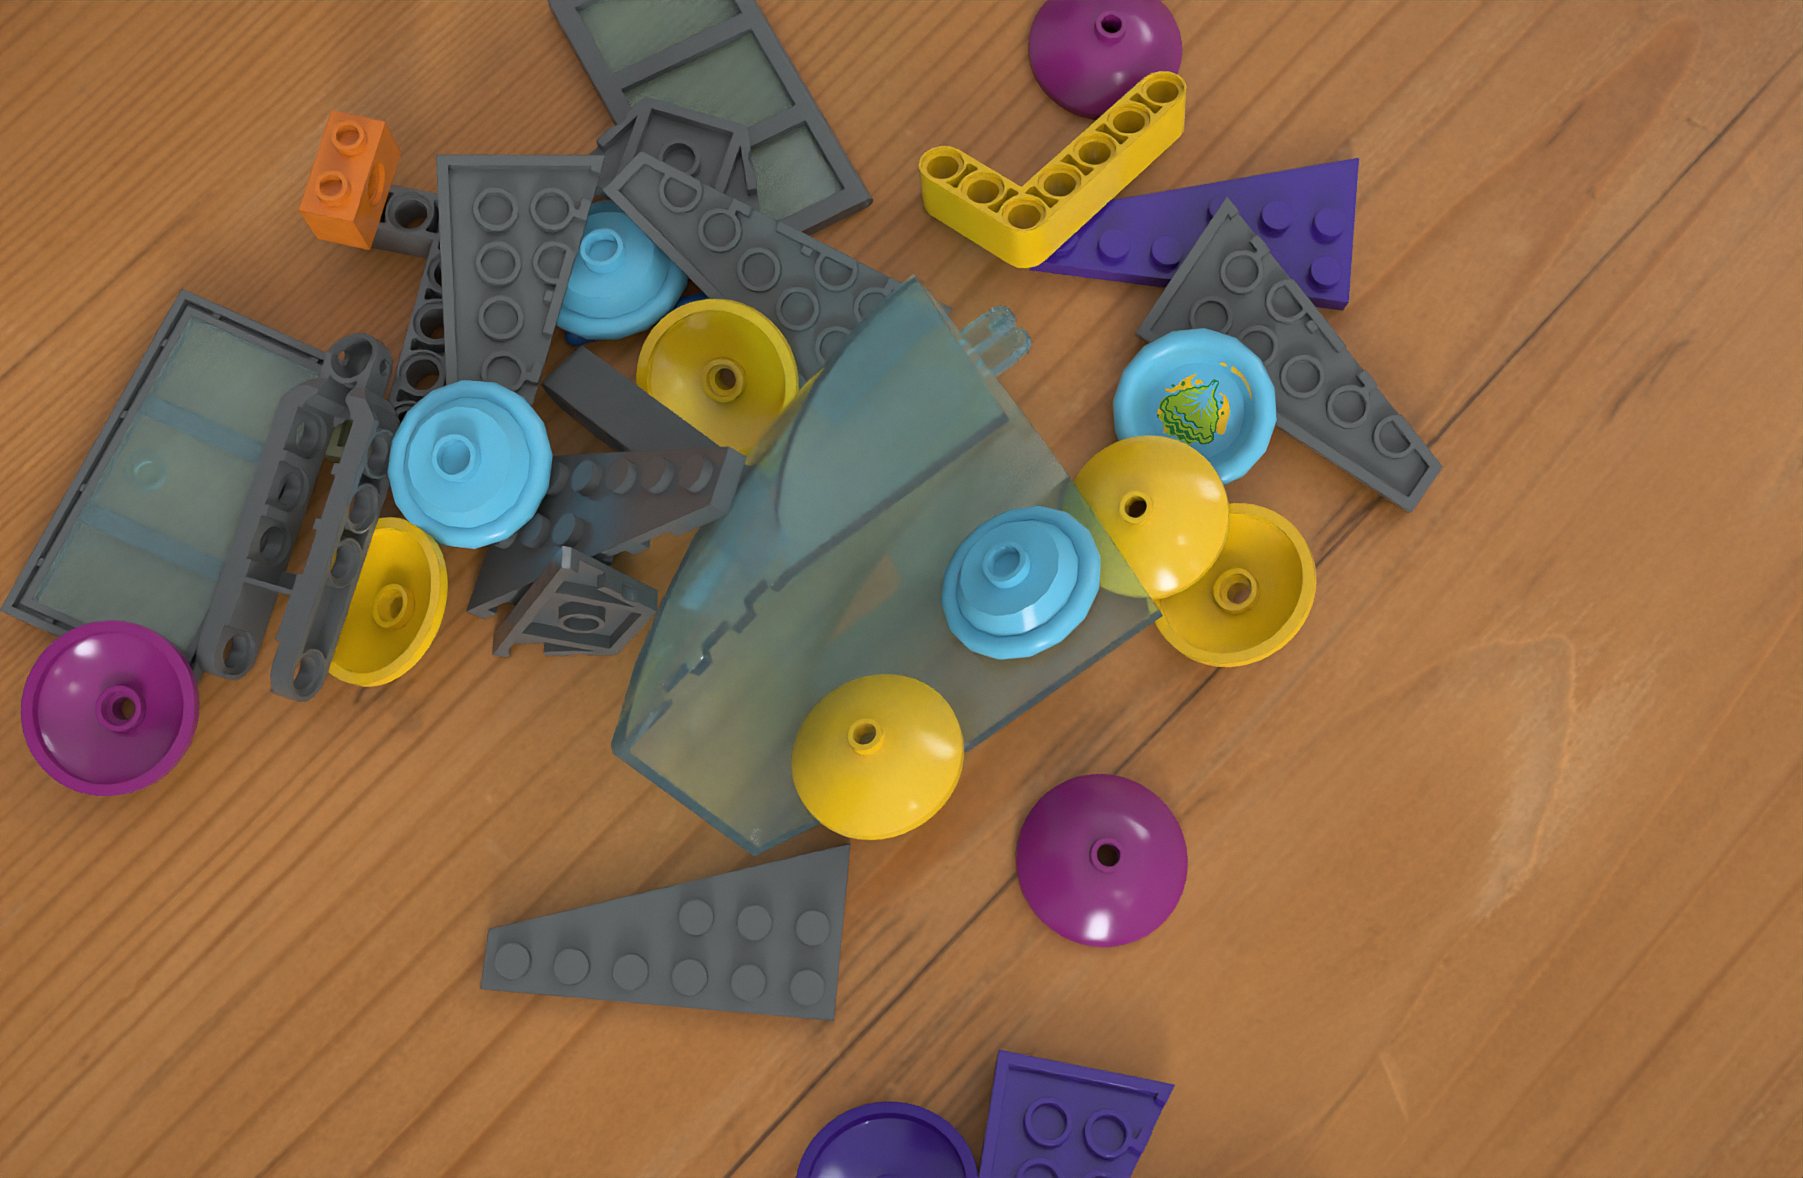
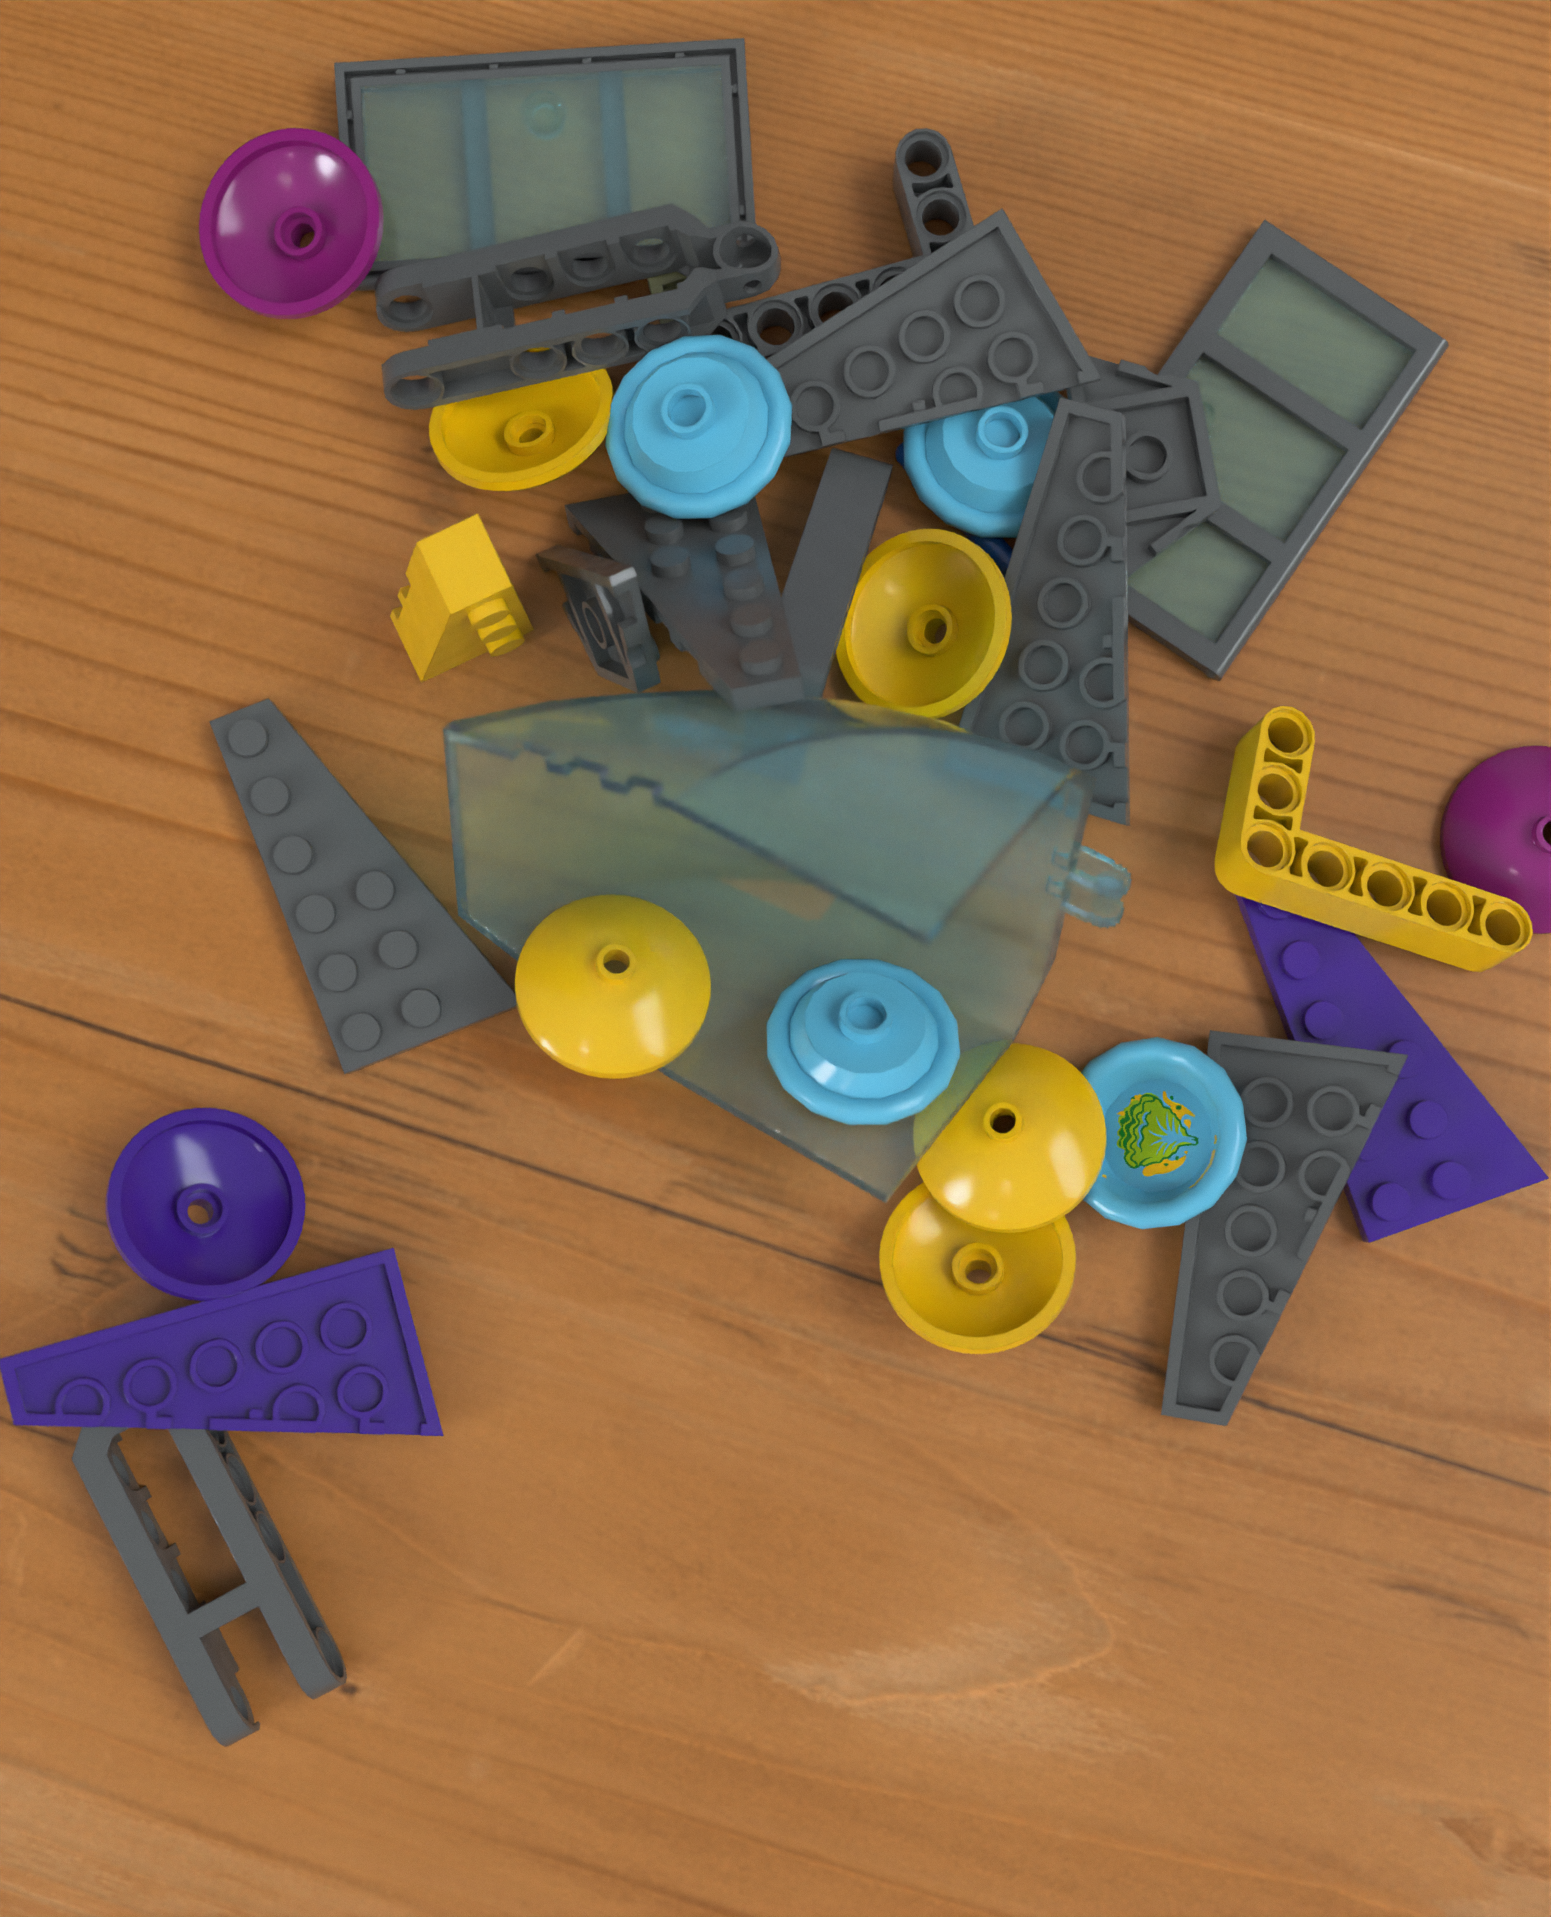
camera: 70 degrees right, 10 degrees up
(350, 180) = (934, 137): orange brick -> none
(503, 716) = (457, 601): none -> yellow wedge
(1069, 884) = (681, 1252): magenta dish -> none

